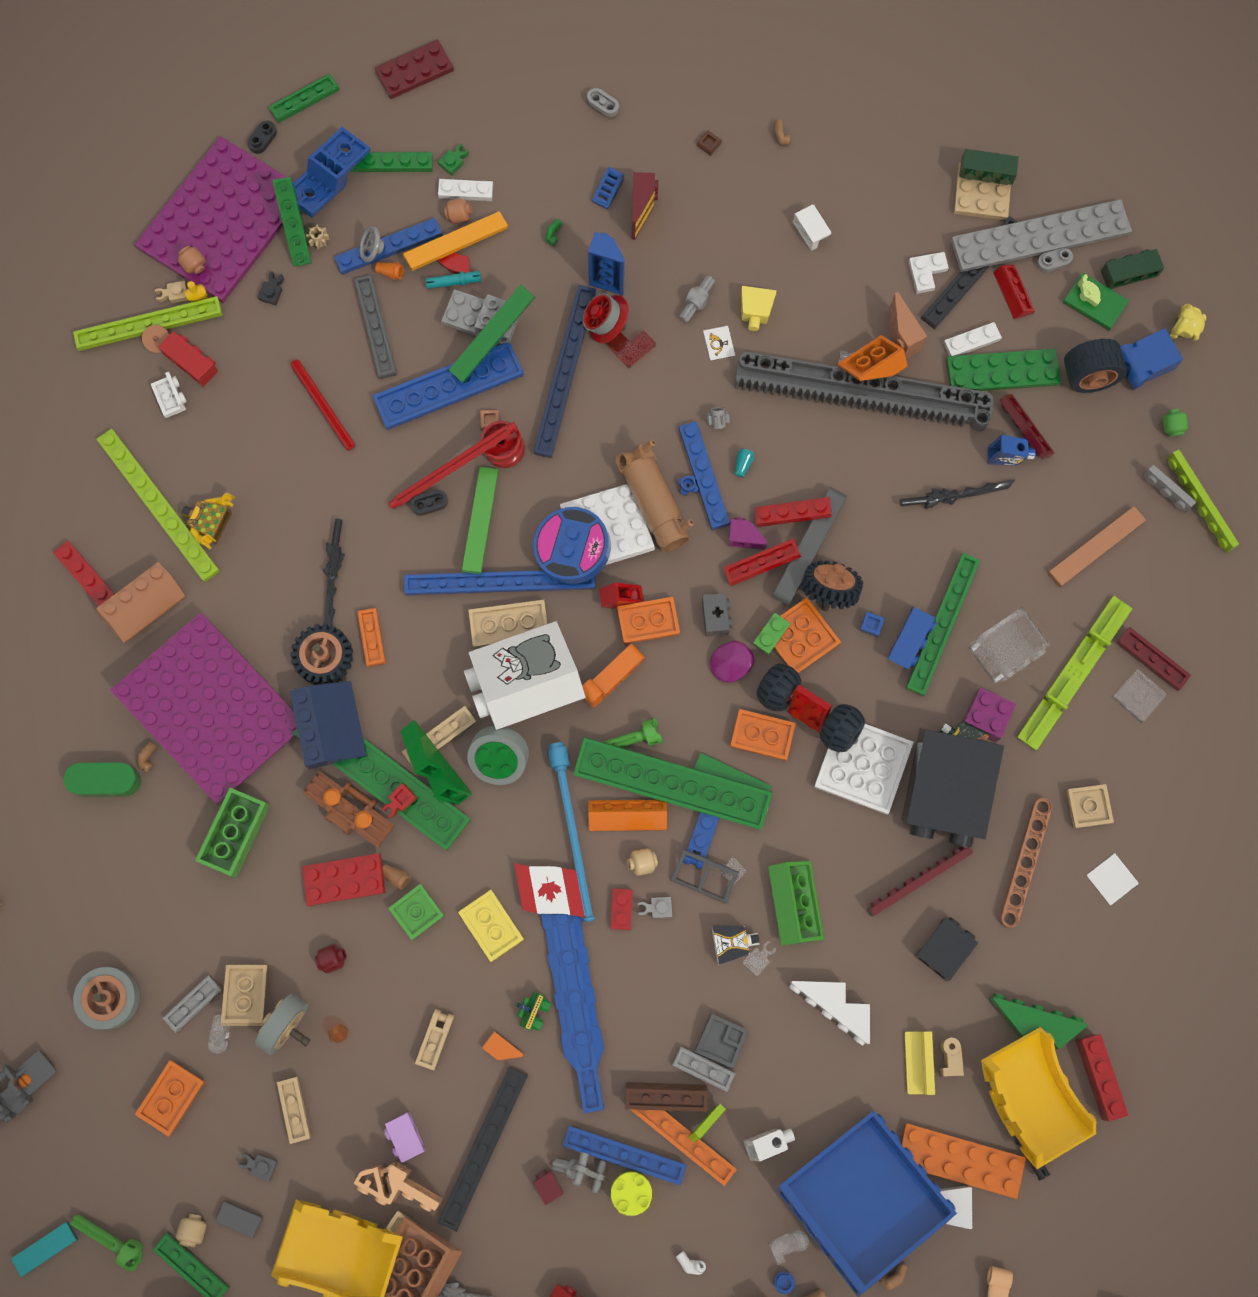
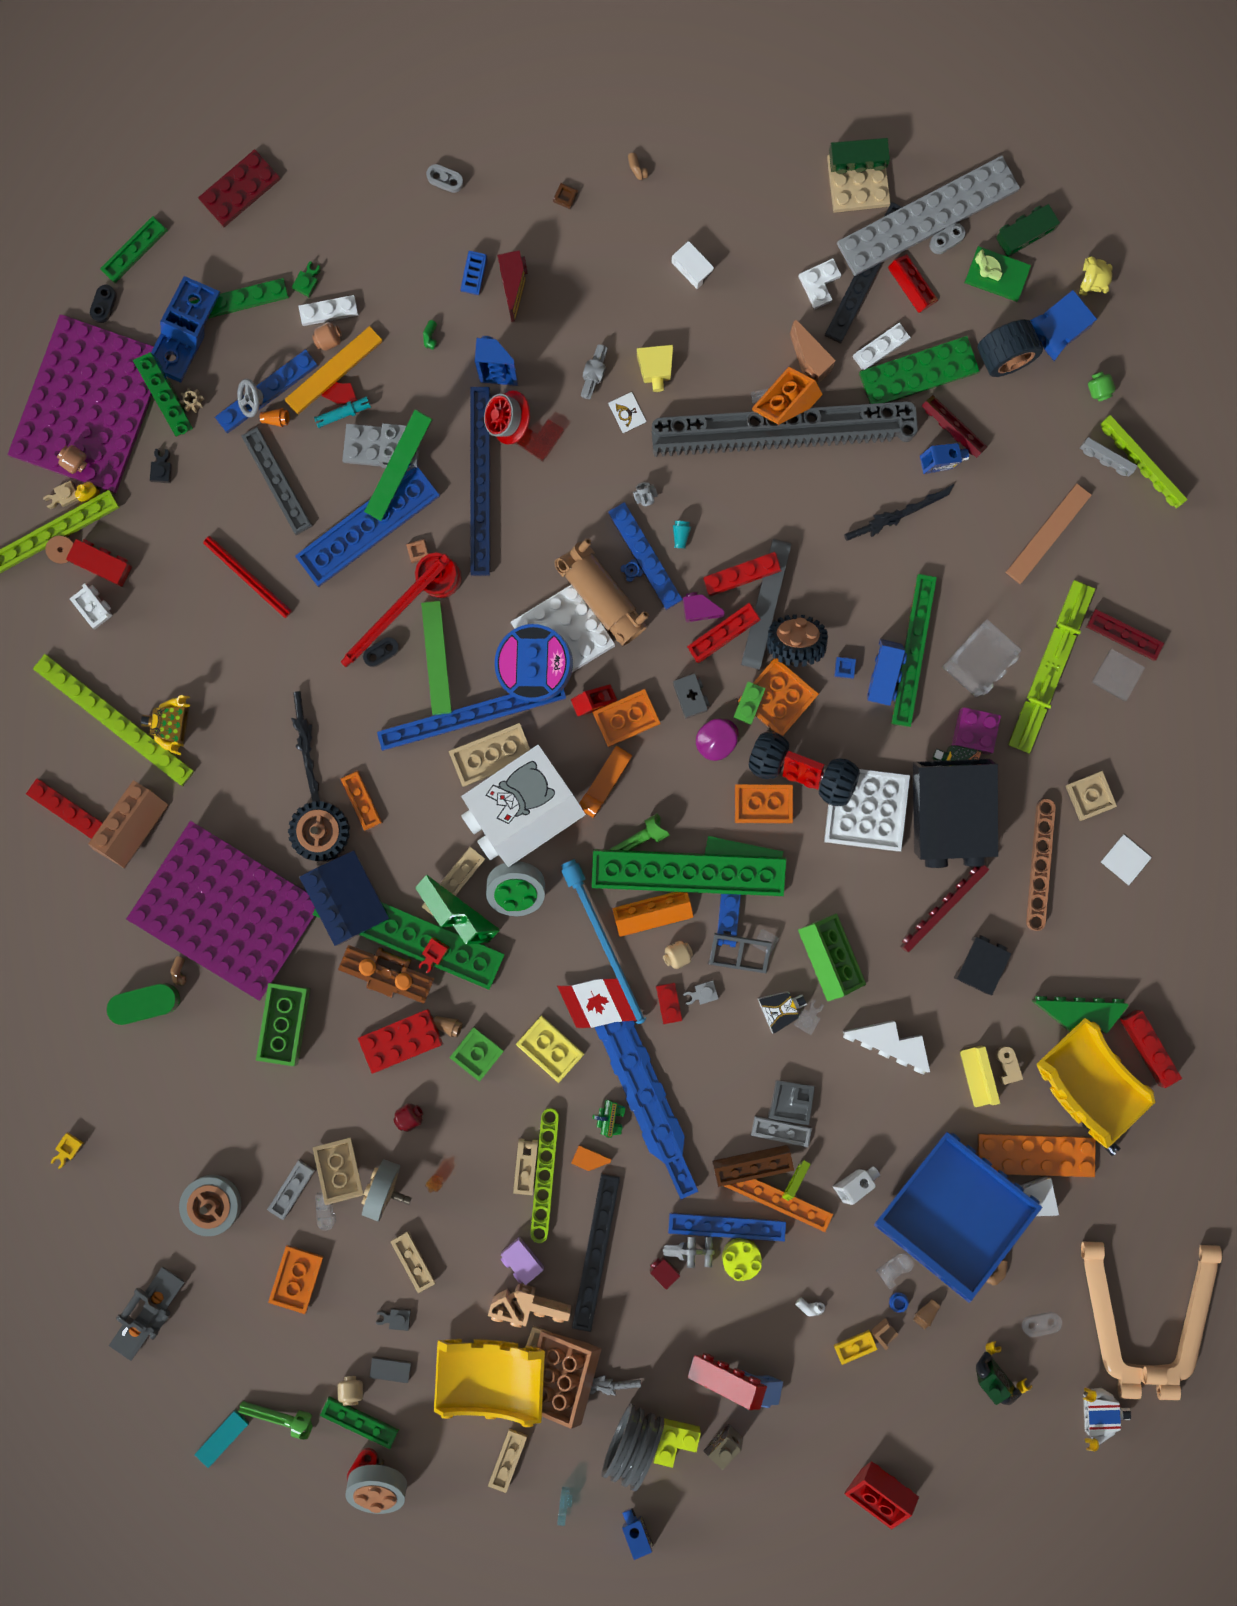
camera: 10 degrees left, 10 degrees up
(444, 1061) = (547, 1184): none -> lime beam

